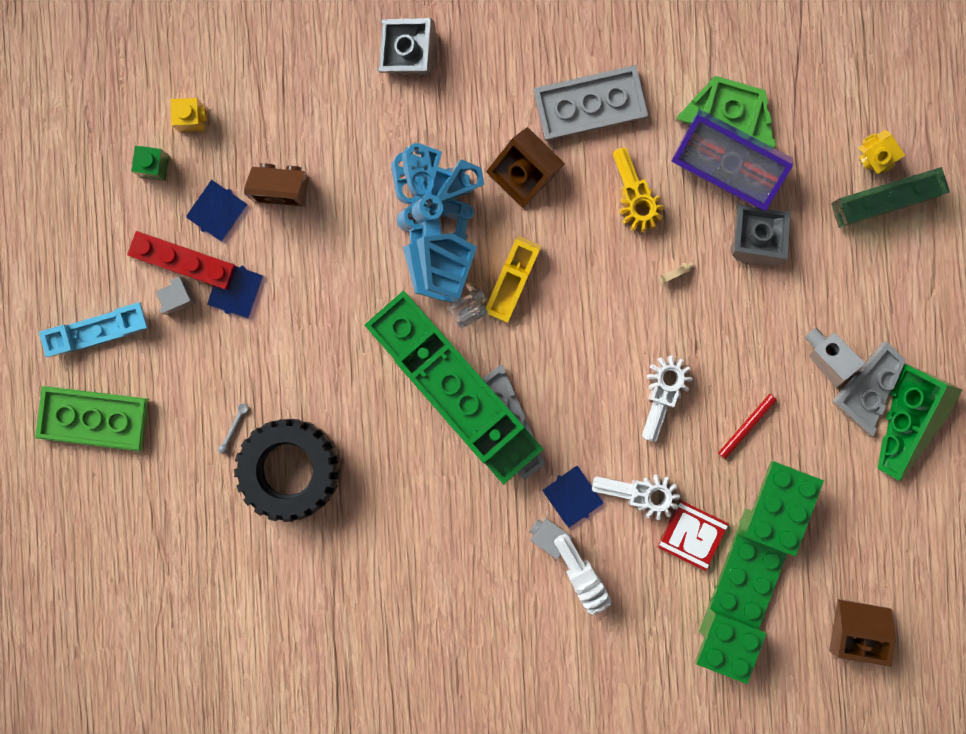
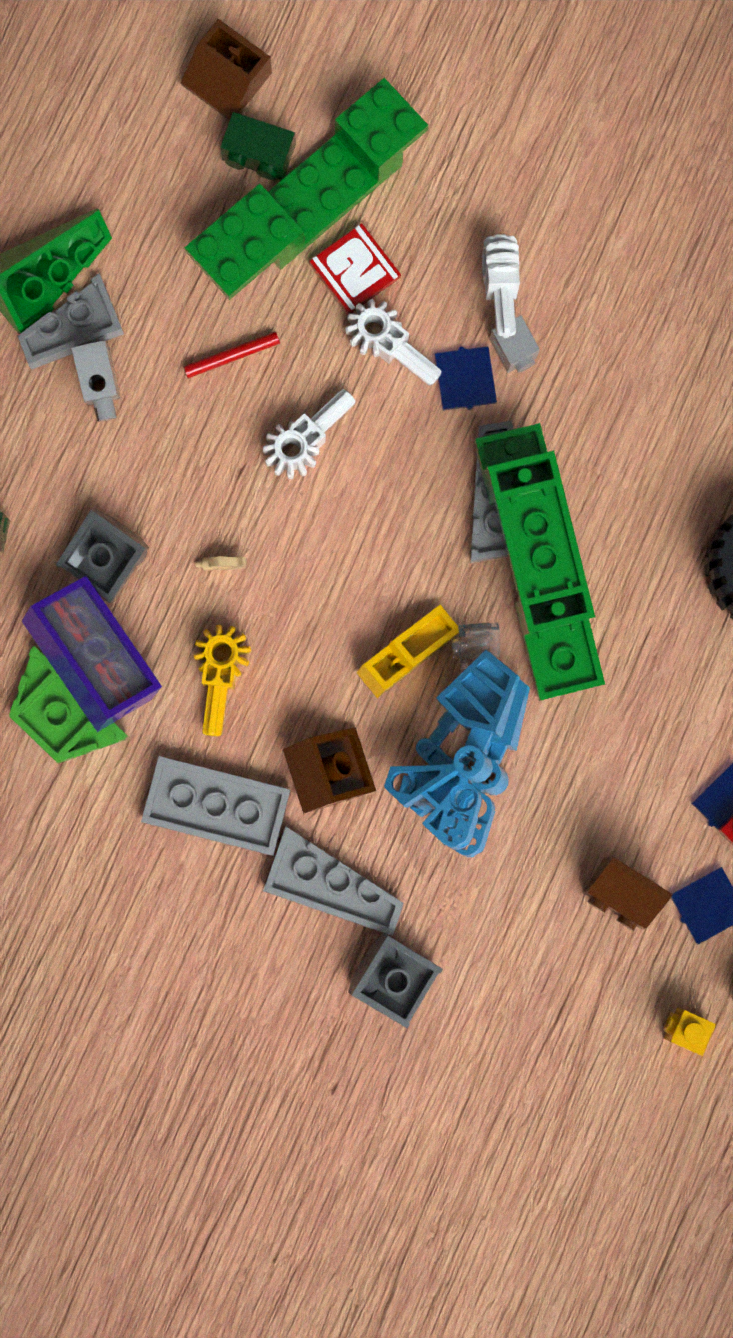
camera: 160 degrees left, 5 degrees down
(486, 88) = (325, 884): none -> light grey wing
(810, 588) = (257, 146): none -> dark green brick

